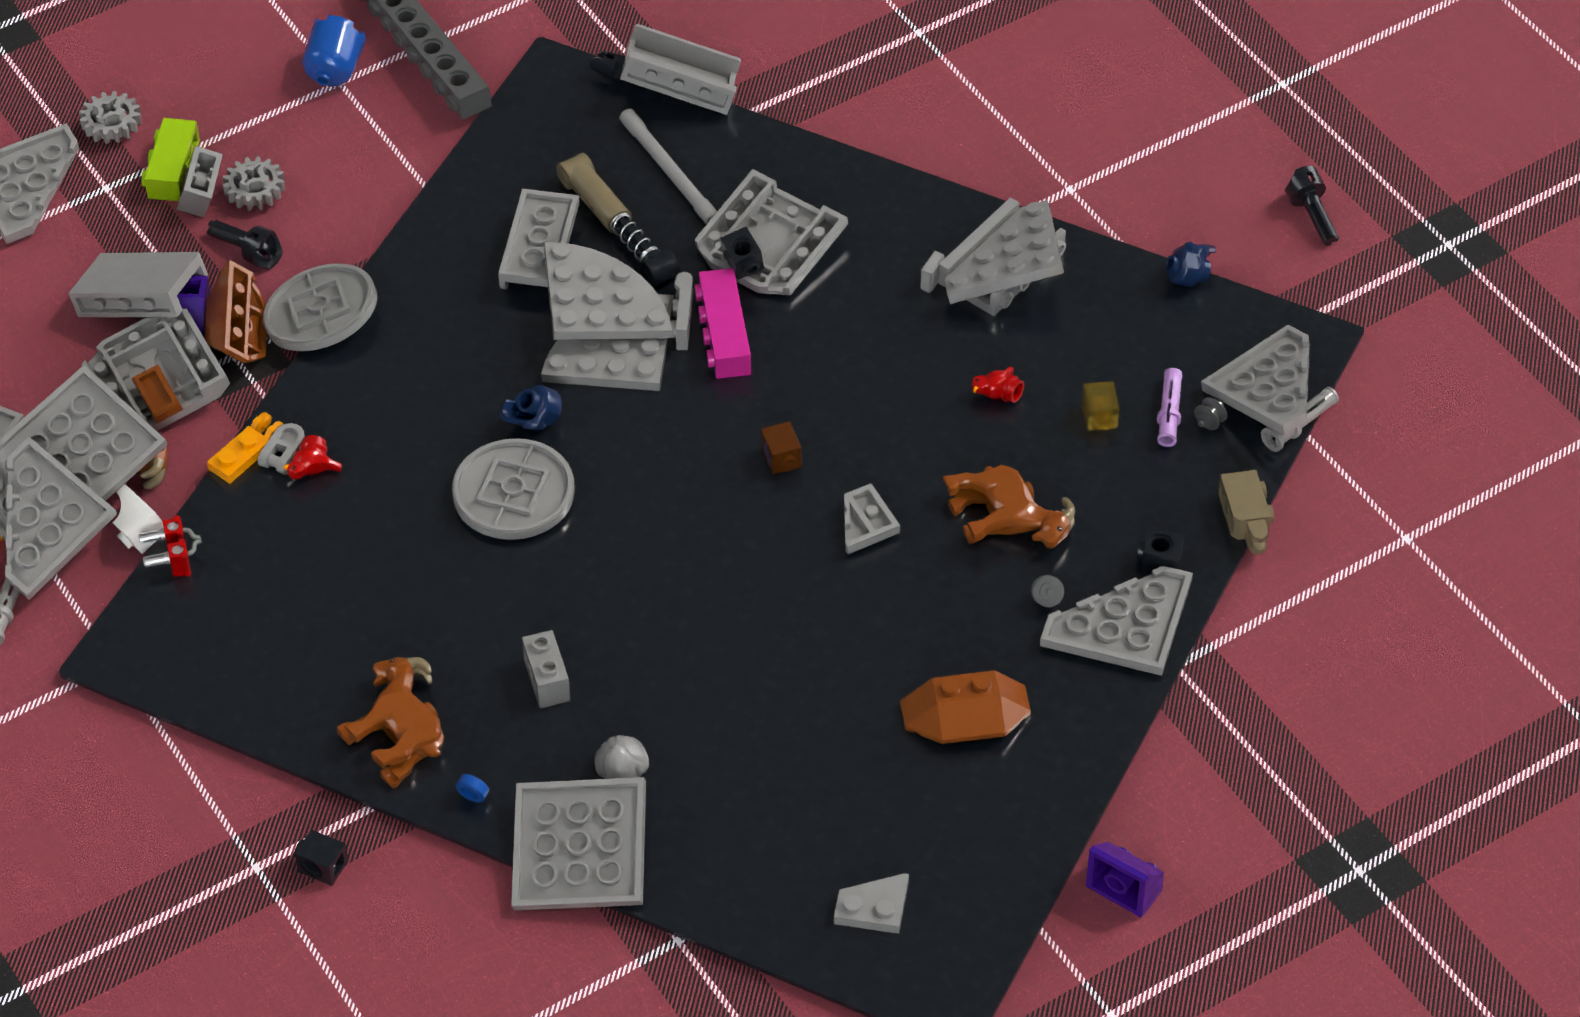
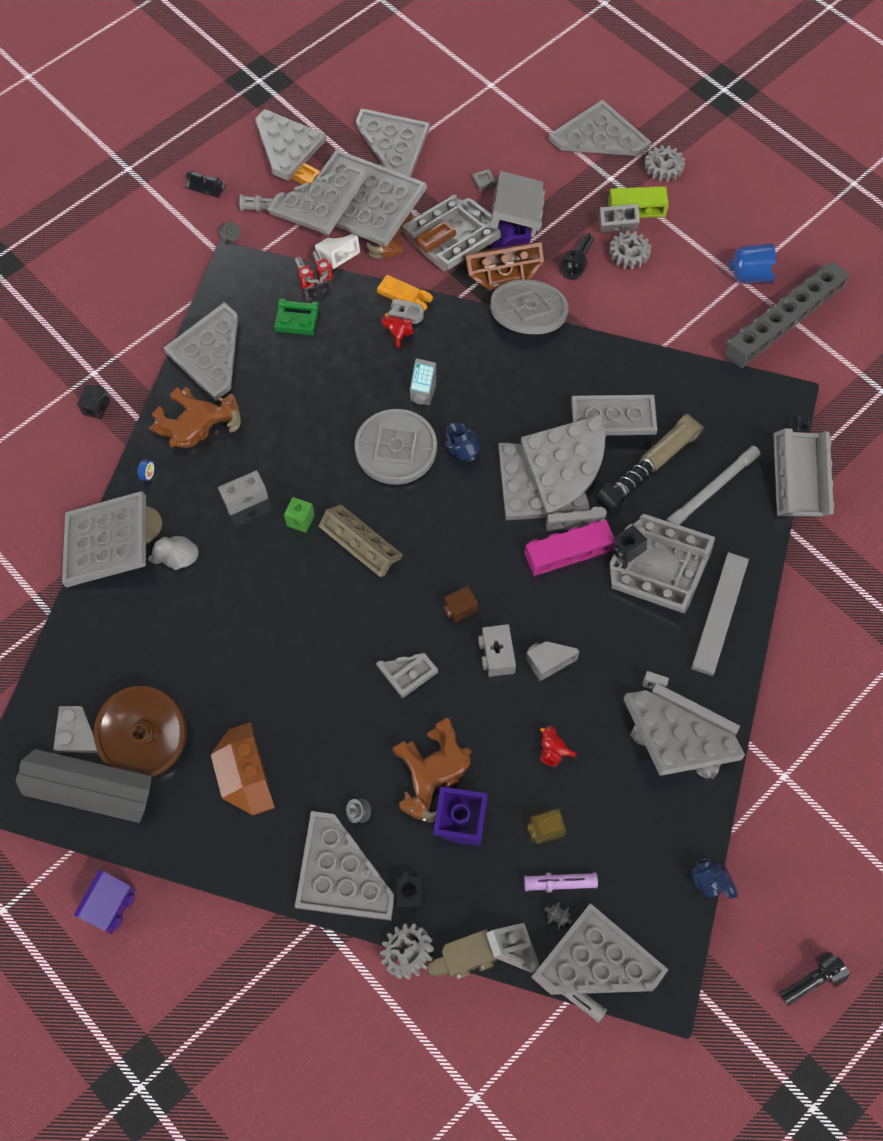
camera: 80 degrees right, 15 degrees up
(47, 654) = (229, 232): none -> dark grey wheel
(56, 332) = (484, 180): none -> light grey tile
(254, 587) = (296, 322): none -> green plate
(278, 699) = (208, 351): none -> light grey plate
(423, 435) = (423, 382): none -> slope
(600, 606) = (299, 514): none -> bright green brick
(655, 548) = (358, 540): none -> dark tan fence
(850, 196) = (720, 614): none -> light grey tile
(856, 418) = (500, 638): none -> light grey brick
(879, 370) = (549, 658): none -> light grey slope
(897, 811) = (140, 730): none -> reddish brown dish
(962, 879) = (84, 785): none -> dark grey piece
(1077, 474) = (460, 816): none -> dark purple slope
(1242, 457) = (513, 947): none -> light grey wing
(1244, 568) = (407, 951): none -> light grey gear

